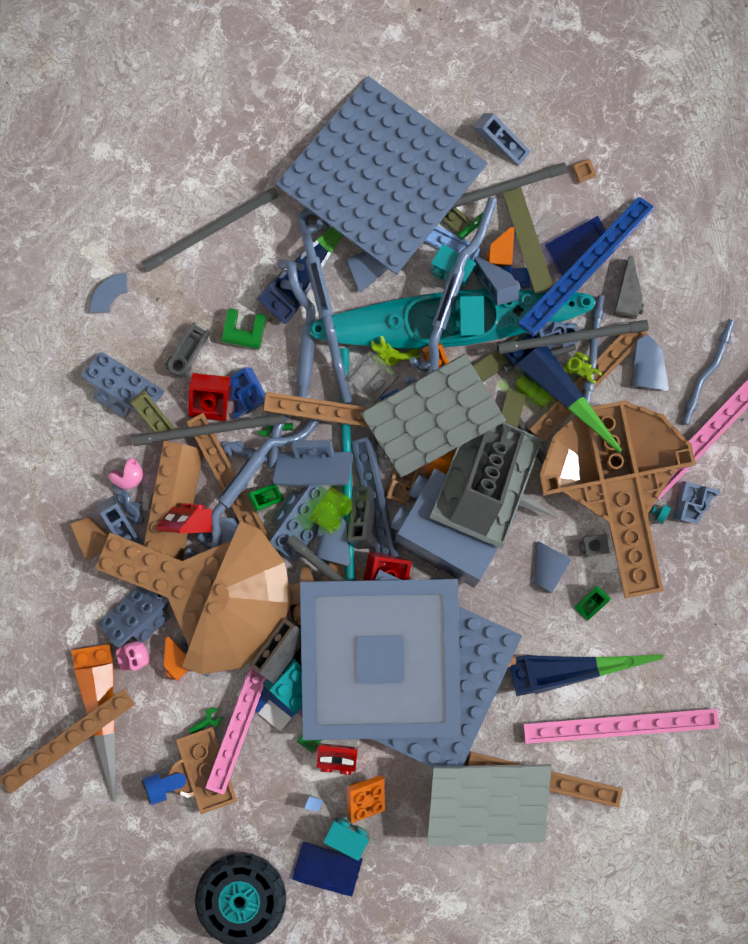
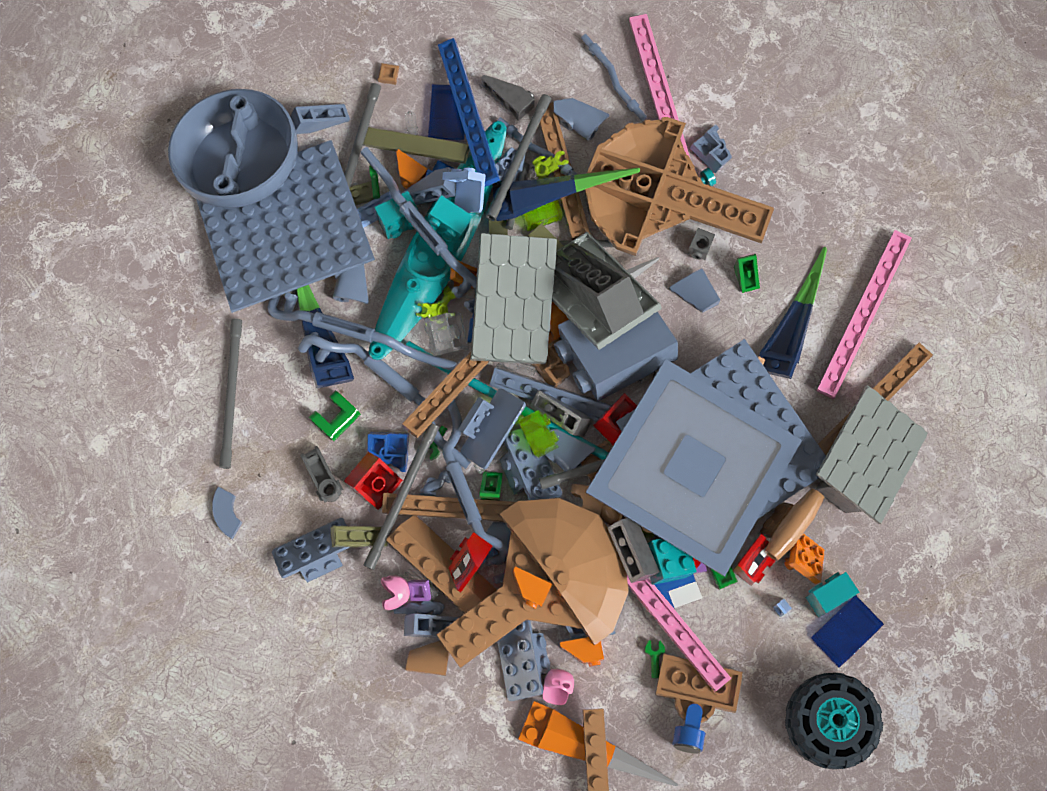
camera: 55 degrees left, 10 degrees down
(140, 494) = (419, 590): none -> medium lavender tile
(192, 586) = (531, 588): none -> orange slope
(384, 768) = (790, 523): none -> medium nougat plate
(420, 86) = (233, 148): none -> sand blue cylinder
(507, 315) = (469, 188): none -> light blue bracket

